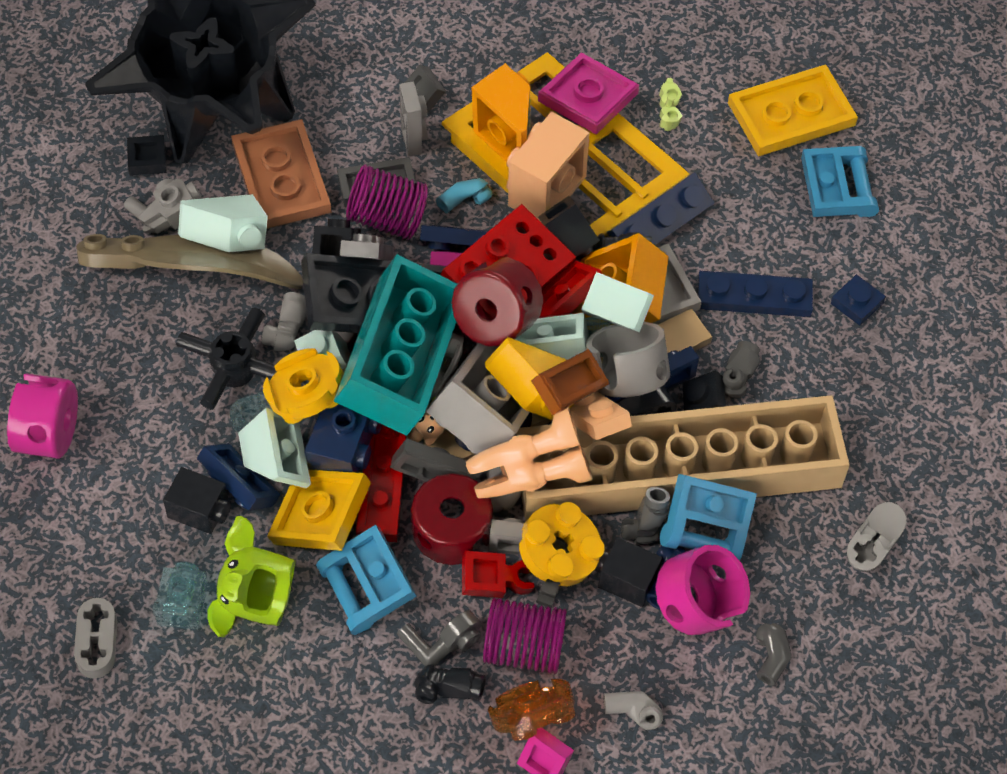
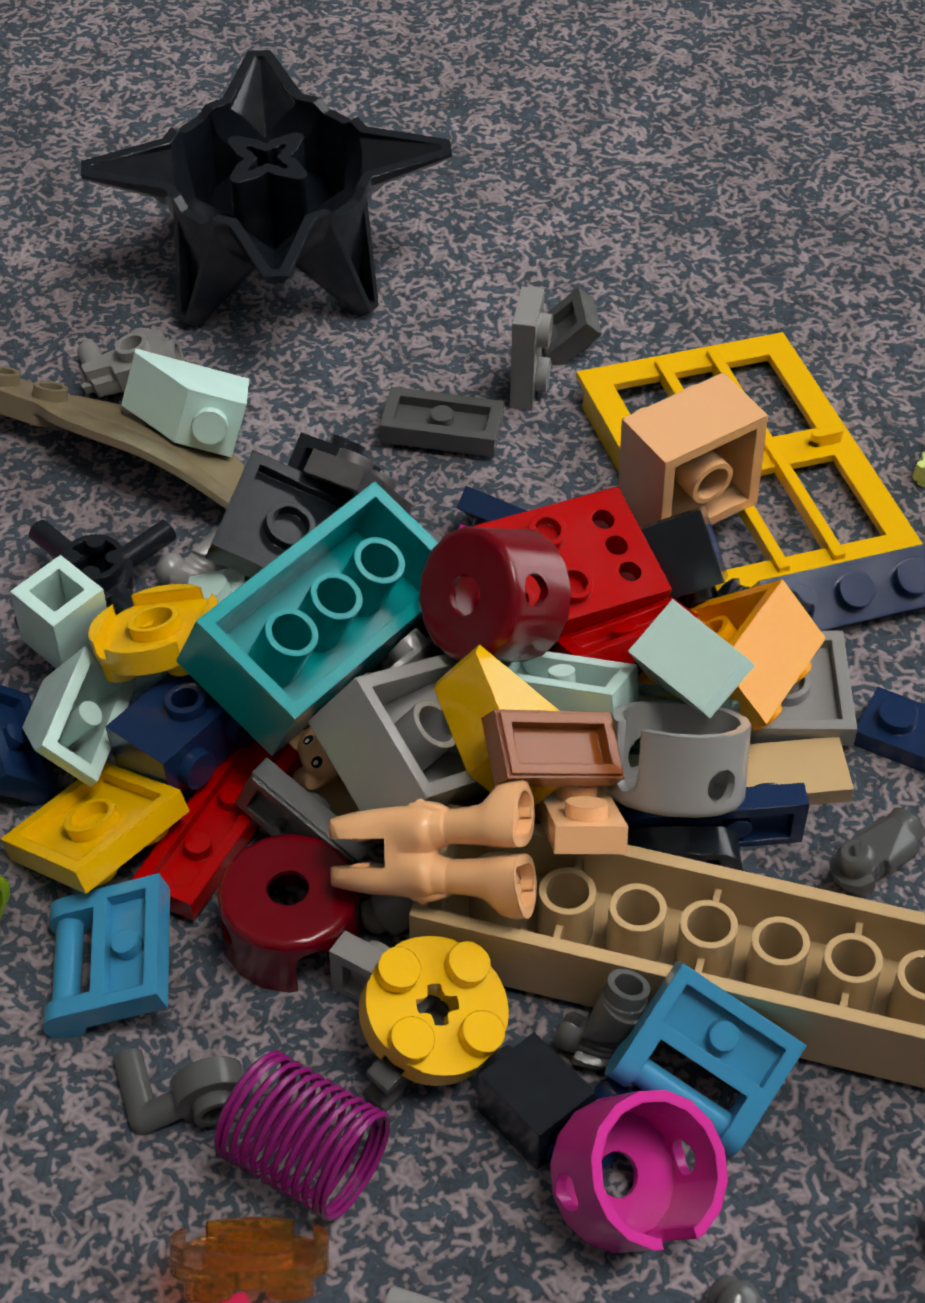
camera: 25 degrees right, 10 degrees down
(146, 155) = (142, 298): black plate -> none
(236, 391) = (57, 610): none -> light aqua brick
(282, 173) = (310, 373): nougat plate -> none
(360, 192) = (430, 453): magenta piece -> none
(452, 683) = (148, 1168): black arm -> none
(461, 190) = (561, 470): medium azure arm -> none
(488, 575) = (304, 1019): red plate -> none
(502, 110) = (660, 351): light orange slope -> none
(588, 93) = (815, 393): dark pink plate -> none
(704, 392) = (802, 860): black plate -> none

